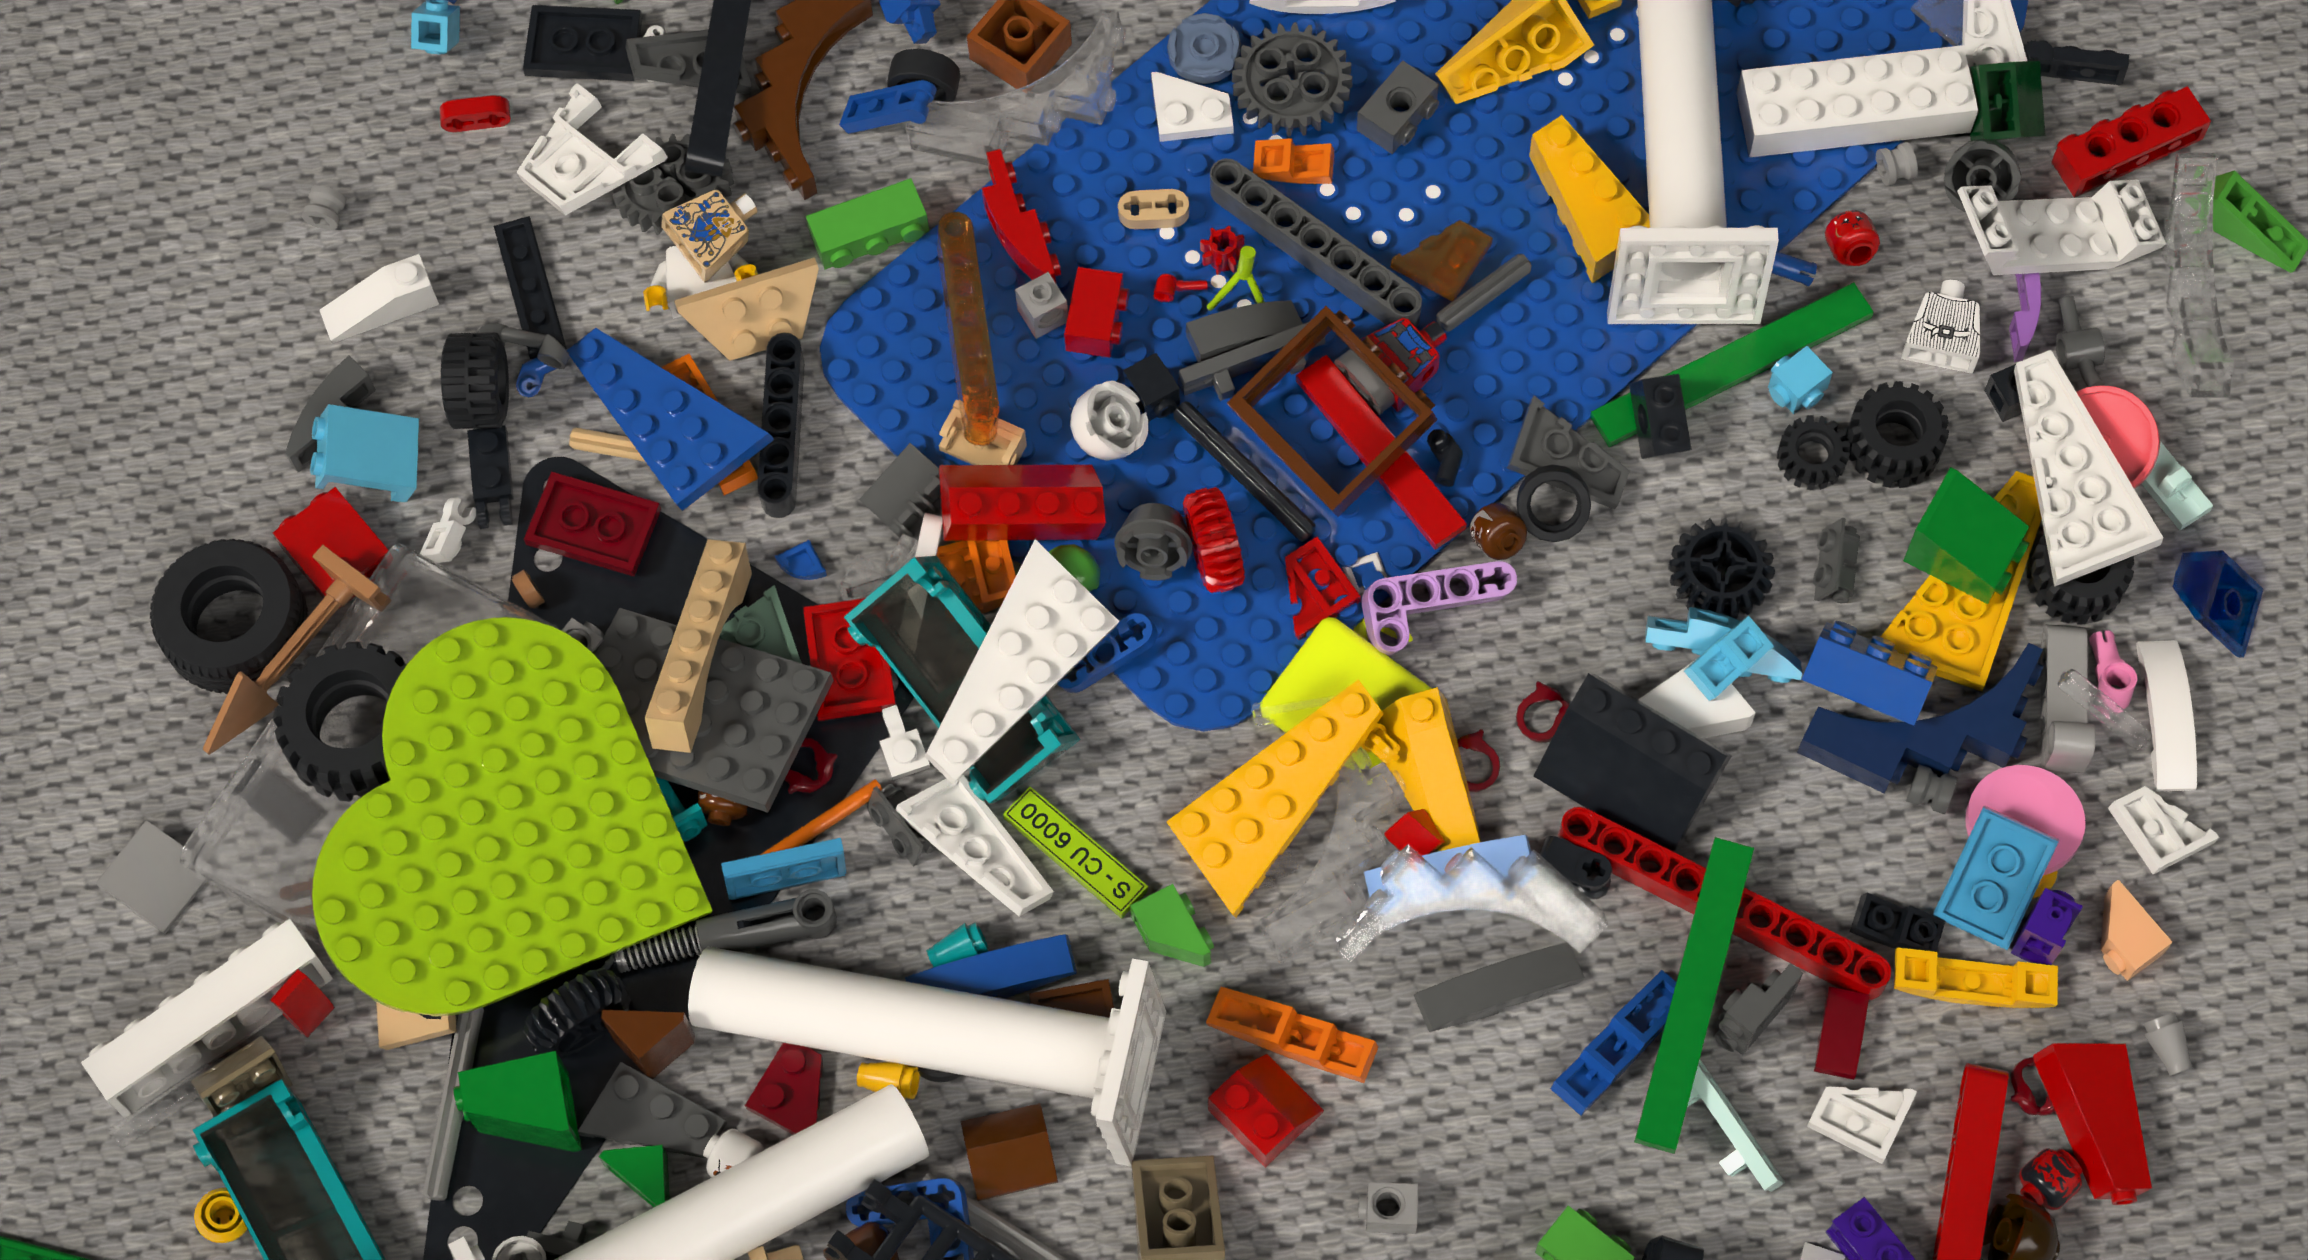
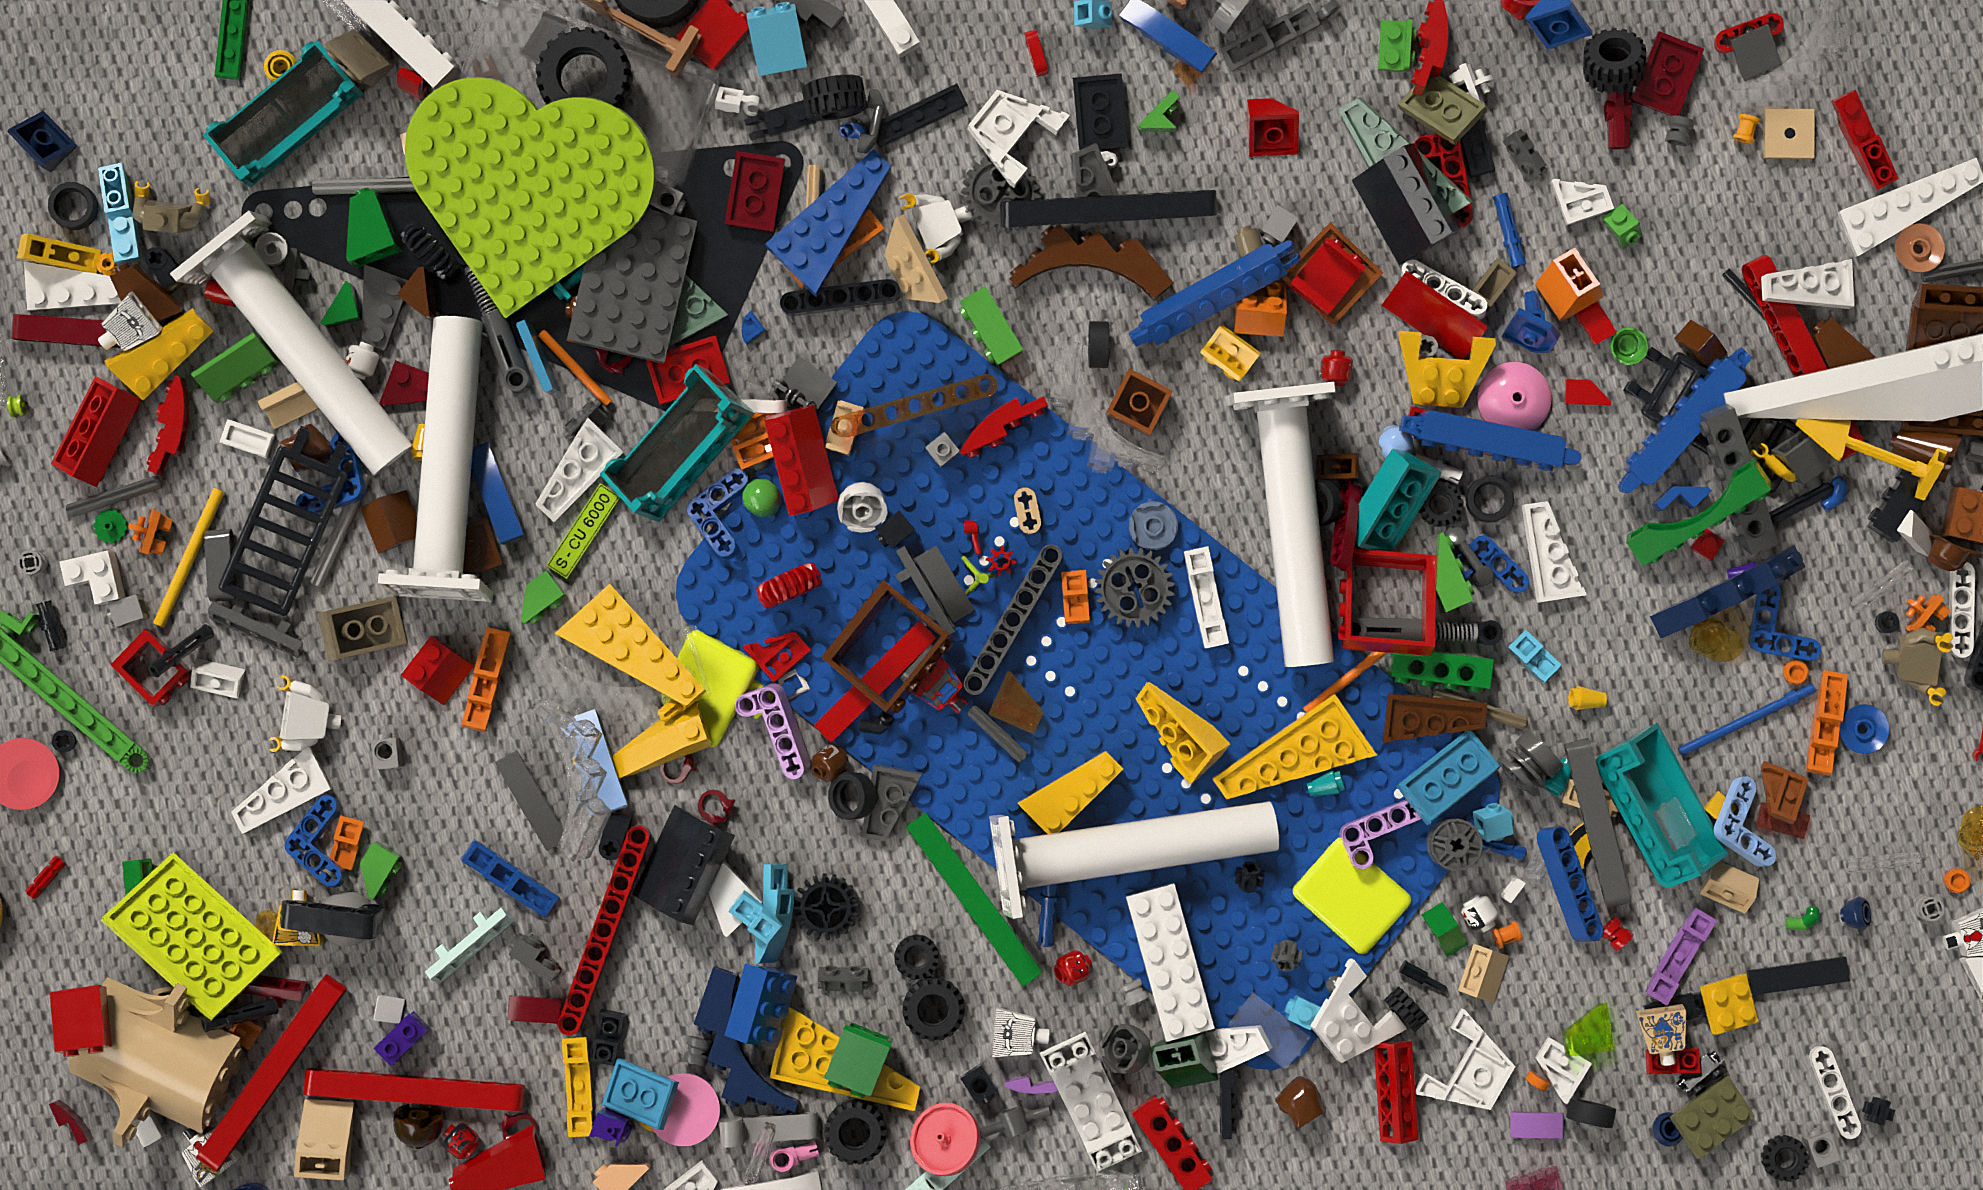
camera: 80 degrees right, 20 degrees up
(527, 589) = (704, 160): medium nougat tile -> none
(680, 690) = (639, 273): tan arch -> none
(709, 230) = (958, 227): tan torso -> none
(888, 106) = (1073, 324): blue plate -> none
(903, 749) = (634, 414): white plate -> none
(959, 944) = (511, 471): teal cone -> none
(1031, 645) = (697, 482): white wing -> none
(1095, 311) = (944, 485): red brick -> none
(1153, 541) = (785, 548): dark grey cone -> none
(1189, 109) = (1105, 522): white wing -> none
(1244, 471) = (848, 597): black axle -> none
(1403, 88) = (1137, 661): dark grey brick -> none
(1417, 831) = (621, 737): red slope -> none
(1660, 416) = (921, 856): black brick -> none
(1694, 996) = (536, 918): green tile -> none
(1799, 380) = (964, 942): medium azure brick -> none
(1862, 1118) = (483, 1026): white wing -> none
(2082, 491) = (896, 1129): white wing -> none

